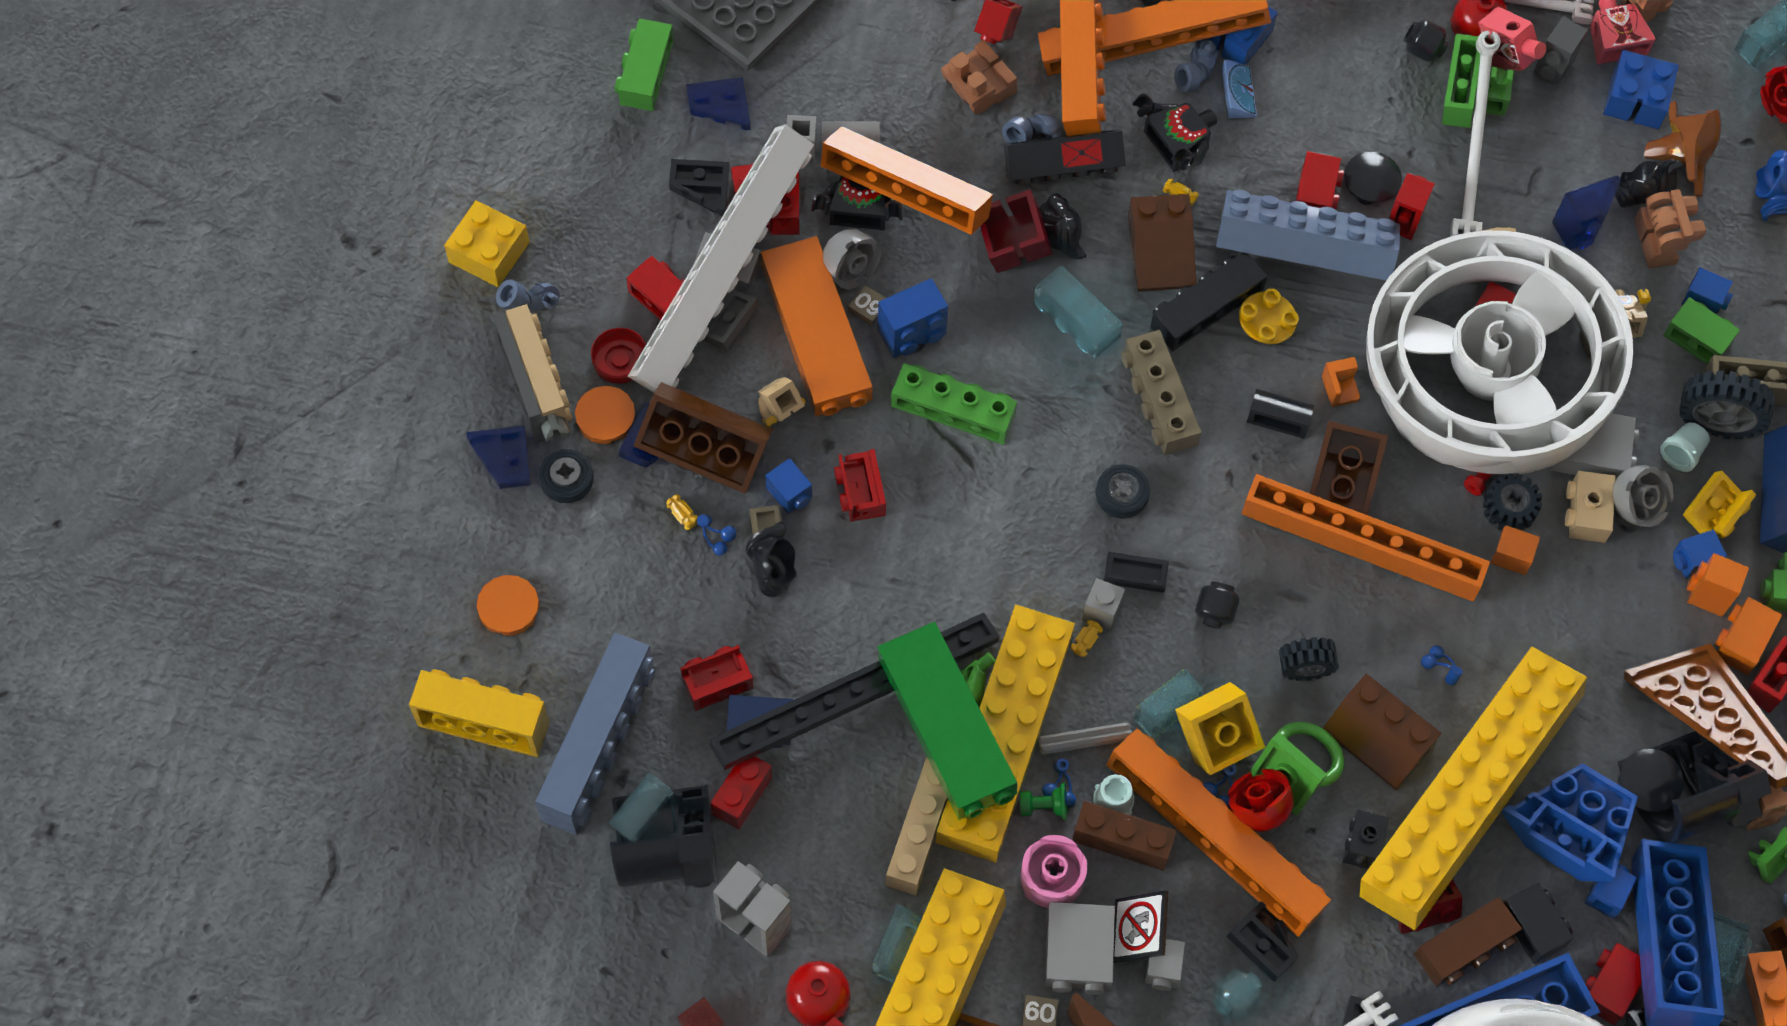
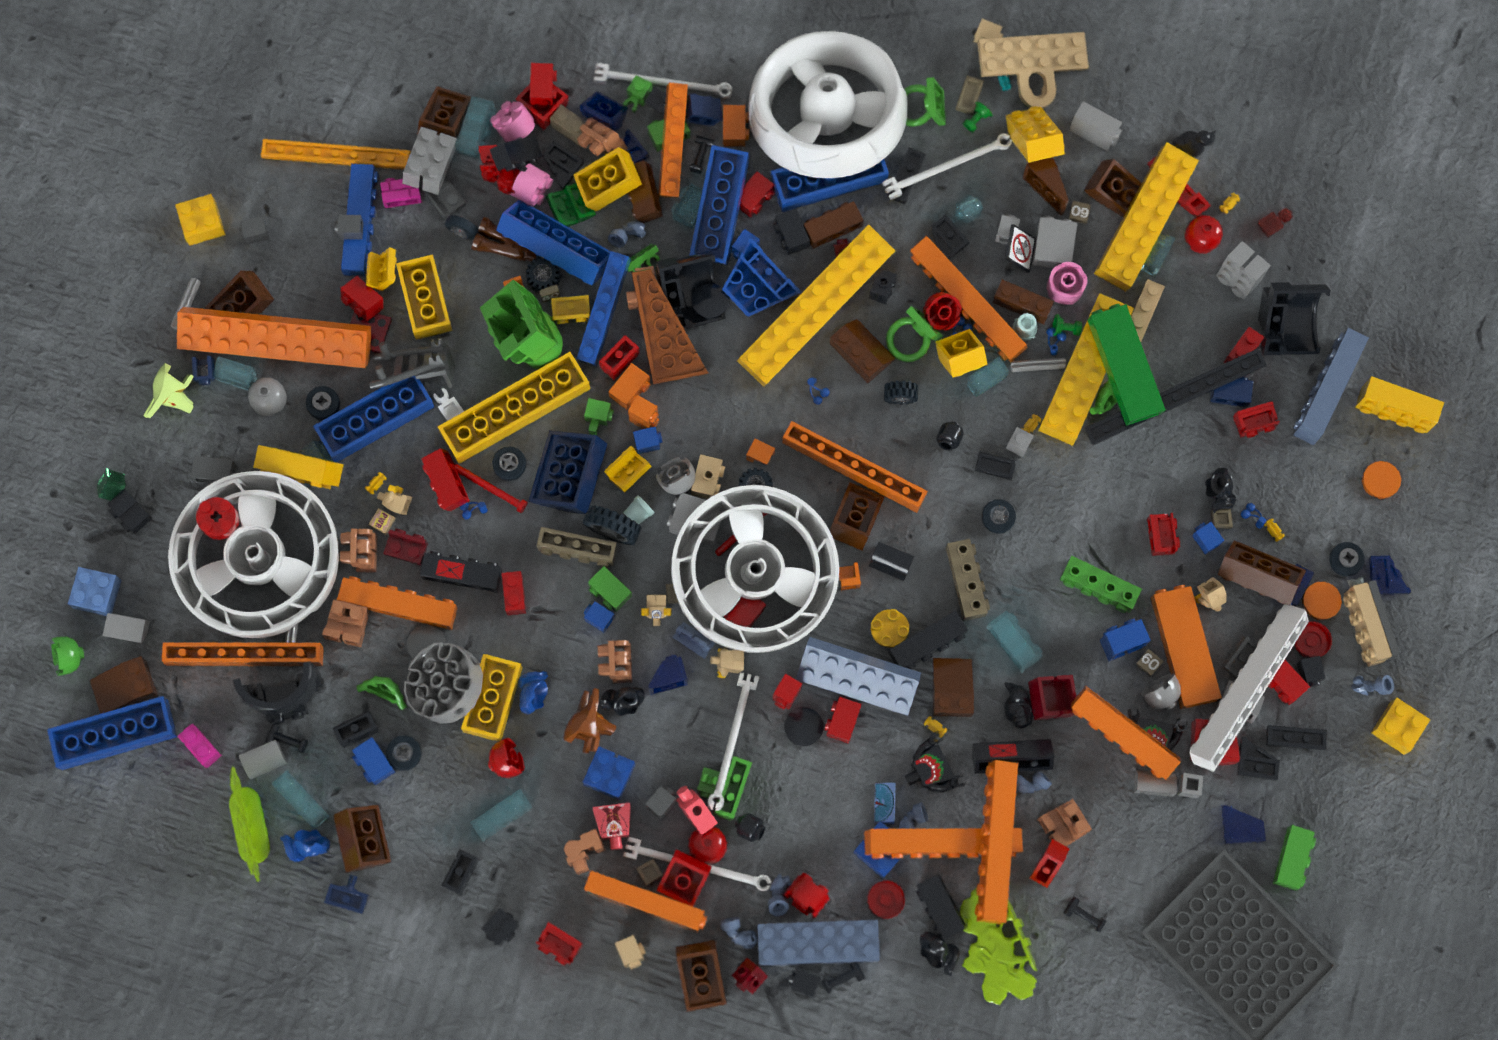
camera: 175 degrees left, 10 degrees up
(622, 307) = (1311, 671): none -> black brick
(641, 807) = (1305, 338): clear light blue brick -> none
(643, 219) = (1296, 737): none -> black plate

